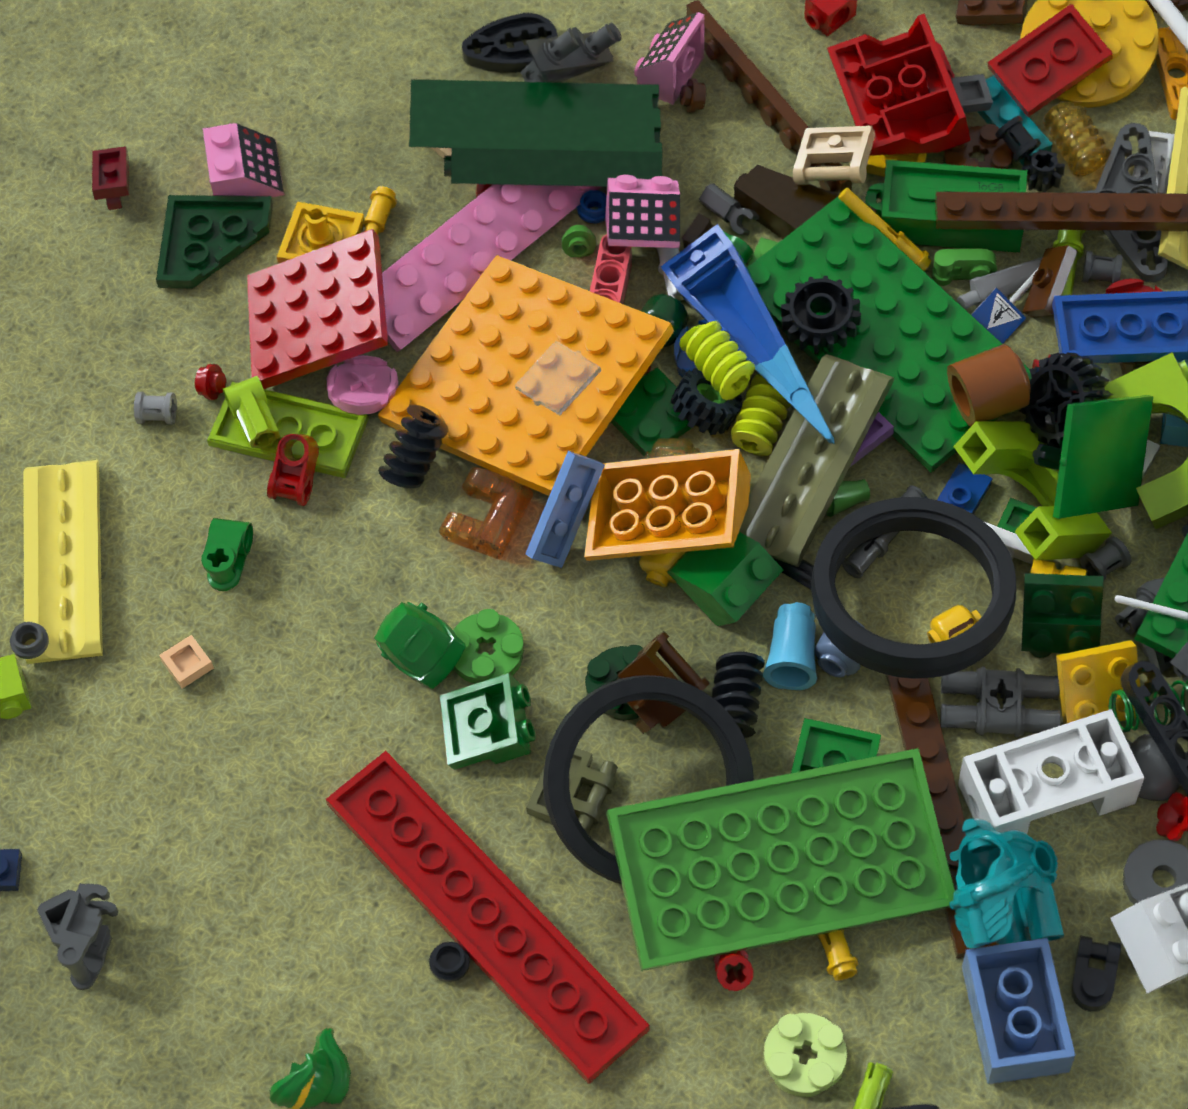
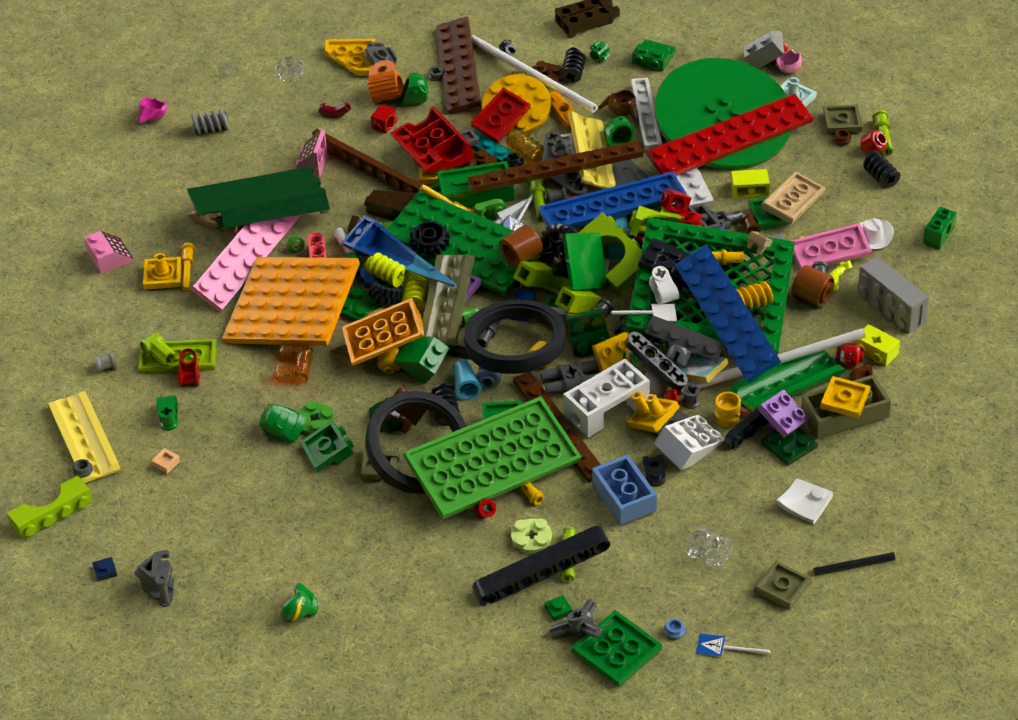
camera: 20 degrees left, 15 degrees down
(110, 175) = (41, 271): dark red plate -> none
(207, 234) = (102, 284): dark green plate -> none
(210, 381) = (130, 344): red plate -> none
(316, 309) = (174, 298): plate -> none
(362, 385) = (208, 327): bright pink tile -> none
(416, 448) = (248, 343): black piece -> none
(449, 962) = (346, 545): black plate -> none
(488, 917) = (357, 522): red plate -> none
(492, 41) = (218, 170): black piece -> none
(557, 378) = (310, 294): clear piece -> none
(564, 509) = (333, 348): medium blue plate -> none
(570, 54) = (262, 162): dark grey connector -> none
(590, 199) = (297, 228): blue plate -> none
(643, 212) = (324, 219): slope -> none
(693, 95) = (329, 171): reddish brown plate -> none
(727, 208) = (360, 211): dark grey bar -> none
(834, 146) = (410, 170): tan plate -> none
(1004, 887) = (600, 438): teal helmet -> none
(1017, 138) = (491, 150): black bush -> none
(1049, 280) = (532, 204): reddish brown plate -> none
(1128, 843) = (651, 412): none -> yellow plate

